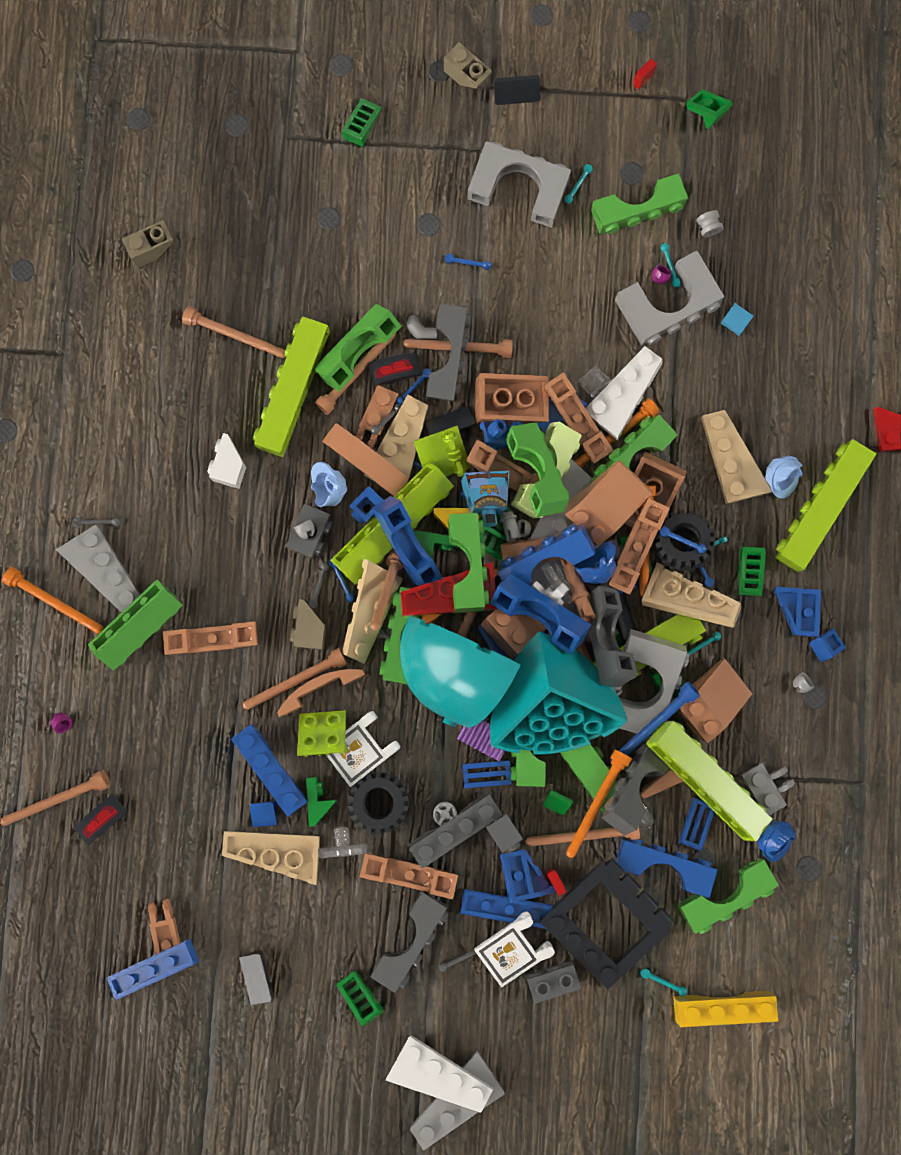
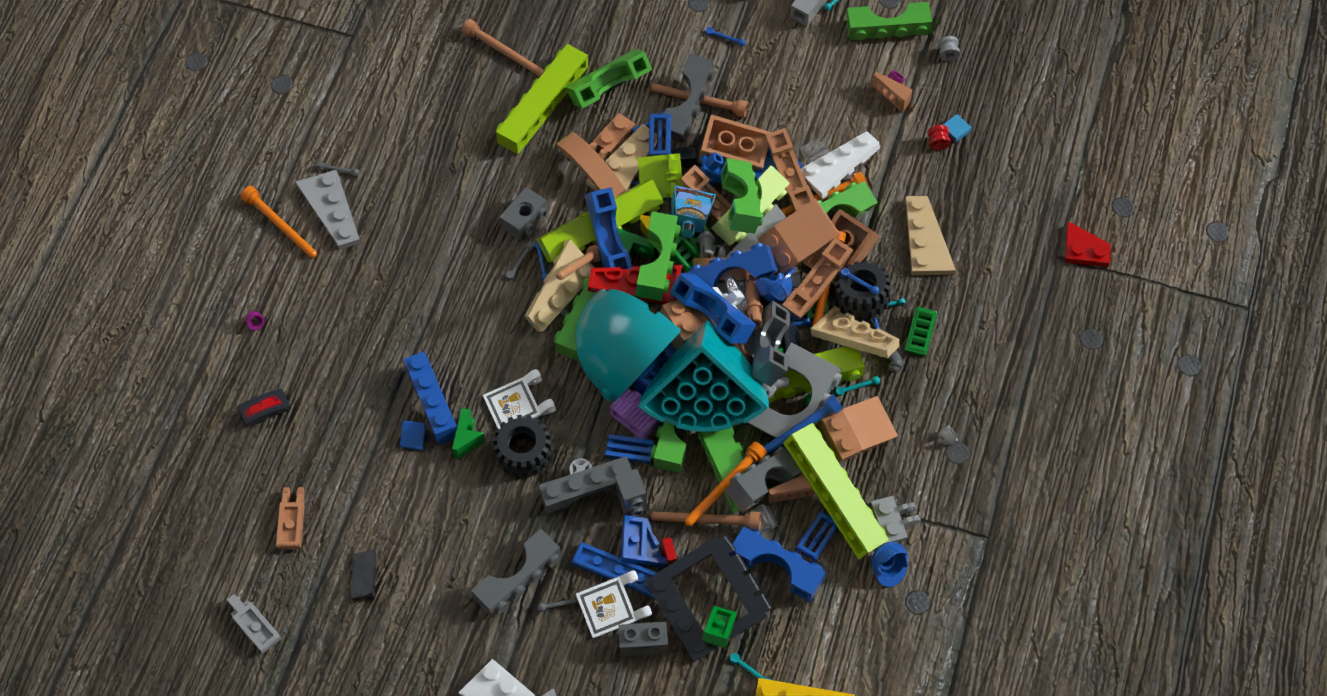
camera: 15 degrees right, 20 degrees down
(98, 782) = (270, 375): nougat piece -> none
(135, 625) = (346, 253): bright green brick -> none
(153, 969) = (270, 540): tile -> none
(160, 1058) = (253, 624): none -> light grey hinge
(210, 638) = (409, 283): nougat slope -> none
(228, 466) = (467, 147): white slope -> none
(275, 852) = (418, 471): tan wing -> none
(293, 702) = (495, 336): nougat slope -> none
(304, 528) = (521, 203): light grey hinge -> none
(309, 629) = (501, 291): dark tan slope -> none
(322, 733) = (488, 378): lime hinge -> none
(327, 402) = (569, 117): nougat piece -> none
(327, 484) = (551, 178): light blue piece -> none
(334, 660) = (516, 322): nougat piece -> none
(342, 846) = (478, 478): clear tile -> none
(366, 498) = (576, 202): blue brick -> none
(372, 1001) = (461, 630): green slope -> none
(376, 429) = (606, 142): dark grey hinge -> none
(394, 368) = (636, 102): slope -> none
(409, 875) = (530, 517): nougat slope -> none
(418, 330) = (666, 78): light grey arm -> none
(427, 387) = (660, 117): none -> blue tile
(557, 802) = (689, 485): green slope -> none
(628, 960) = (719, 627): none -> green slope
(651, 323) = (878, 115): light grey arch -> none
(663, 291) = (893, 91): none -> nougat slope
(676, 281) = (904, 60): teal hinge -> none
(722, 337) = (939, 137): none -> red wheel
(754, 881) = (803, 611): bright green arch -> none
(783, 475) = (969, 258): light blue piece -> none
(800, 609) = (959, 372): blue wing -> none
(825, 505) = (1001, 291): lime brick -> none
(827, 645) = (979, 410): blue slope -> none

